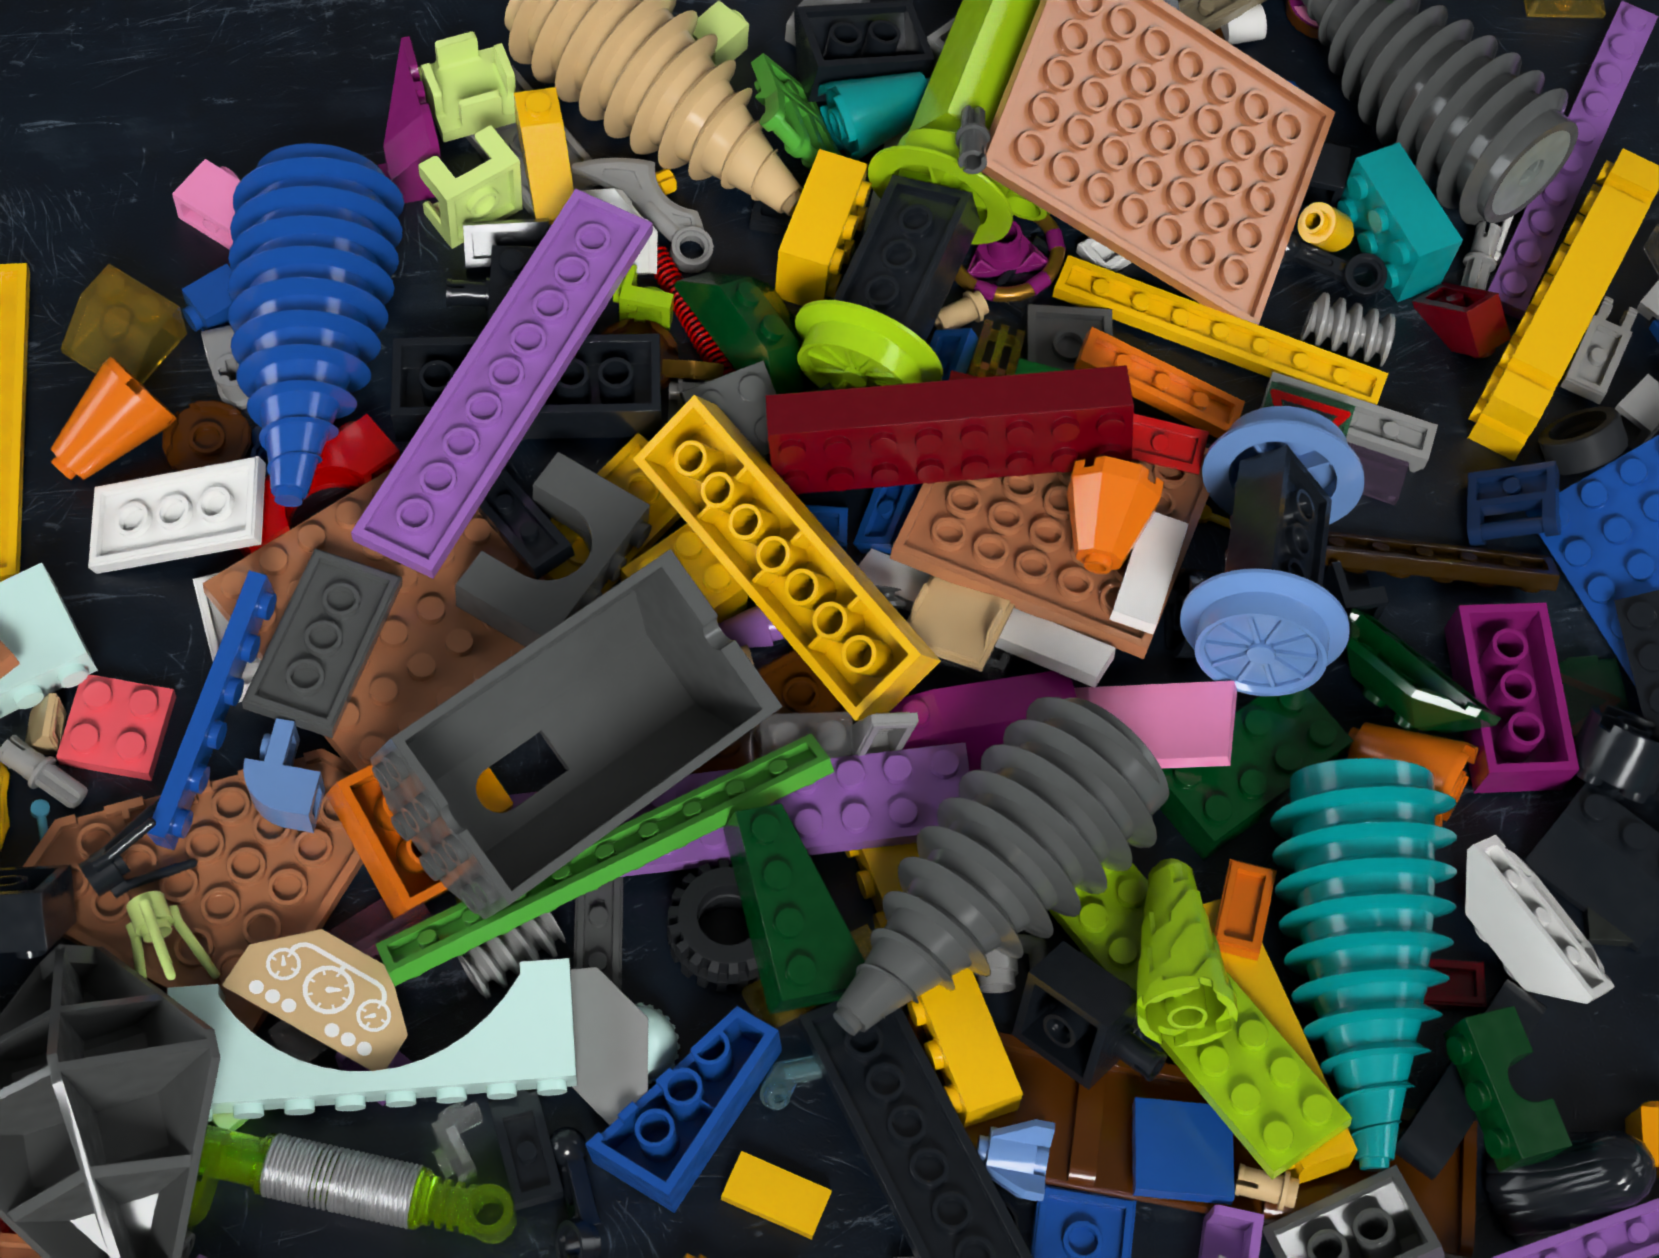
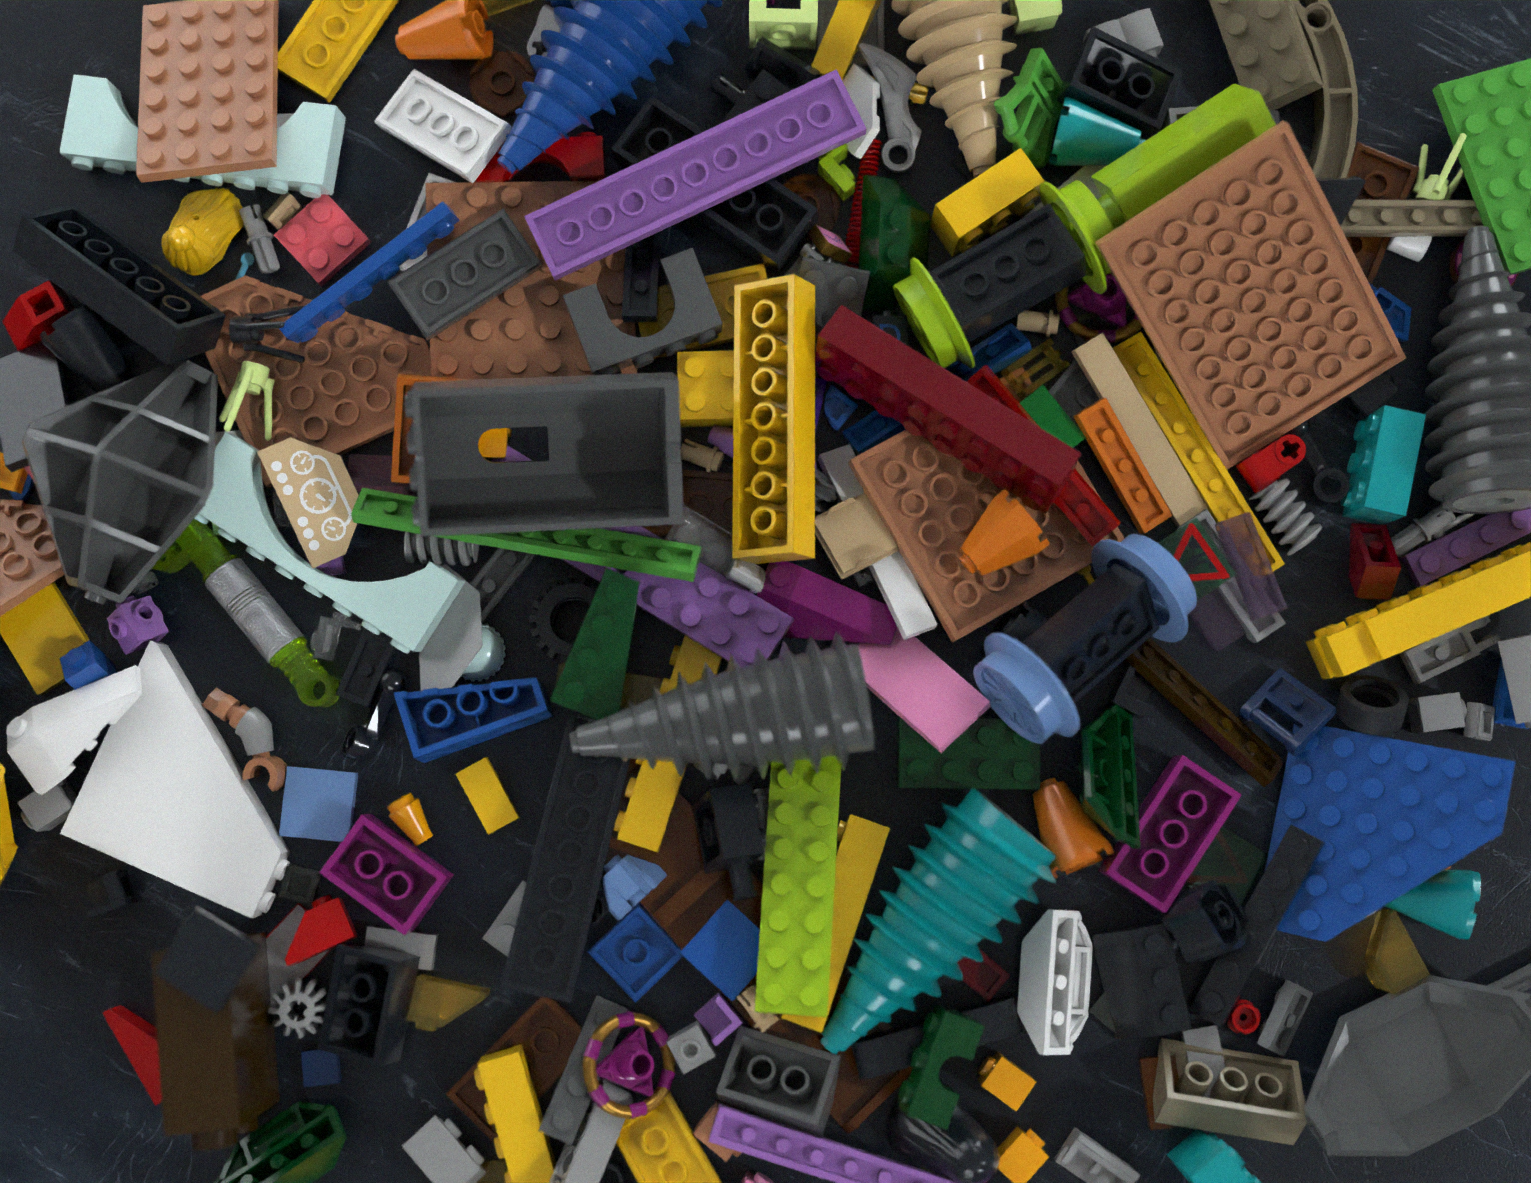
camera: 45 degrees right, 20 degrees up
(278, 790) = (374, 348): medium blue brick -> none
(783, 1079) = (539, 734): clear light blue arm -> none
(972, 140) = (1106, 222): dark grey axle -> none
(1079, 311) = (1113, 382): none -> tan tile
(1149, 573) = (999, 591): white tile -> none
(1180, 964) = (799, 854): lime cone -> none
(1244, 909) = (881, 841): orange tile -> none
(1293, 290) = (1268, 463): none -> red piece
(1325, 227) = (1332, 433): yellow brick -> none
(1374, 399) = (1251, 566): none -> tile
(1575, 1071) = (1005, 1080): none -> light orange brick

